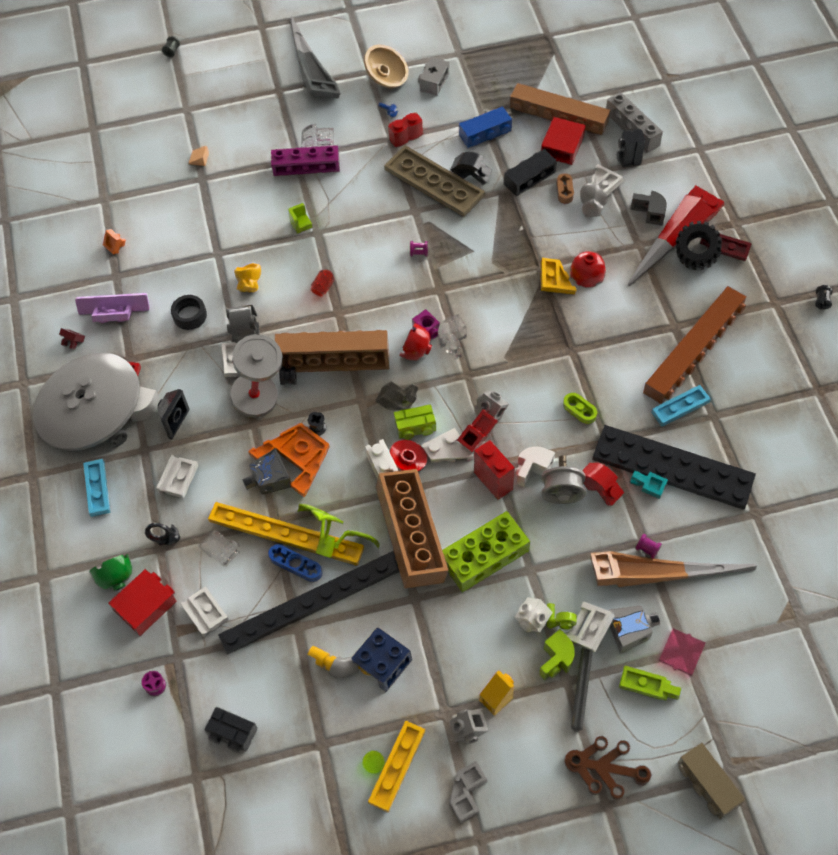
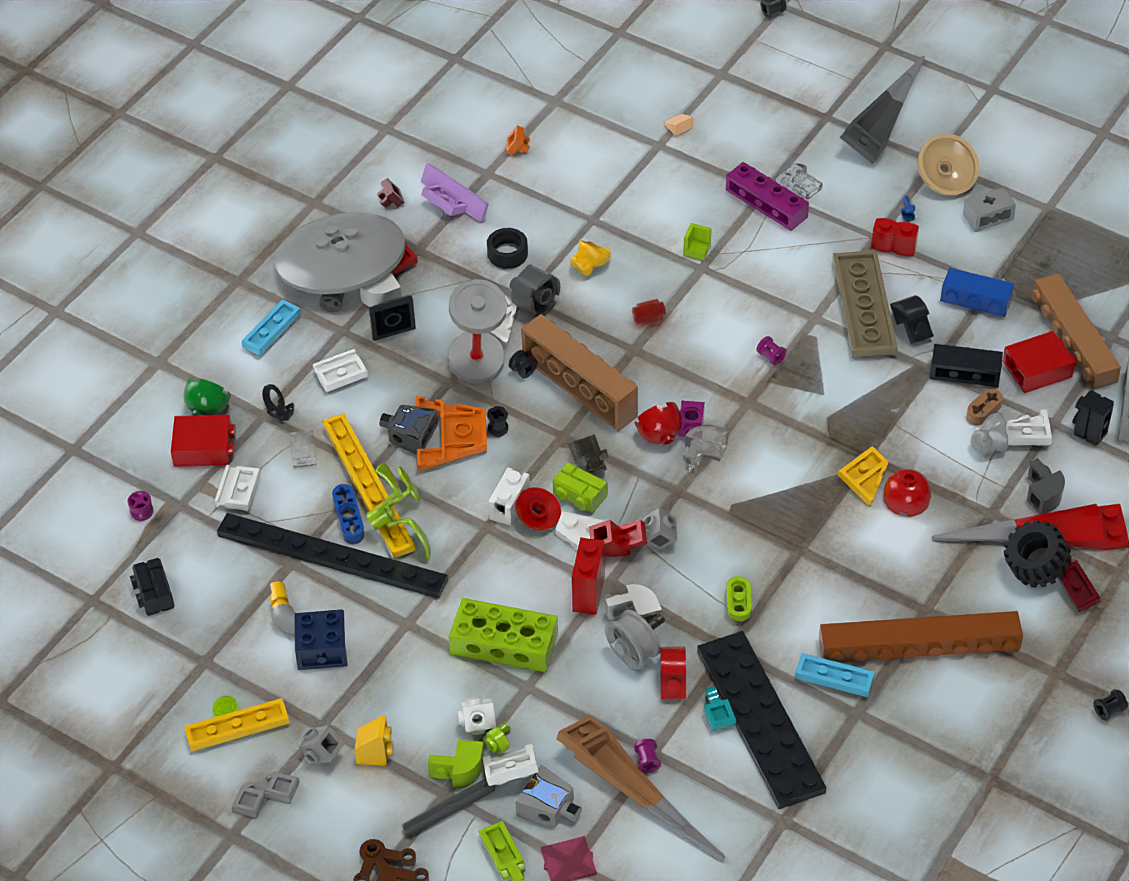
camera: 45 degrees right, 10 degrees down
(411, 528) = (462, 560): medium nougat brick -> none

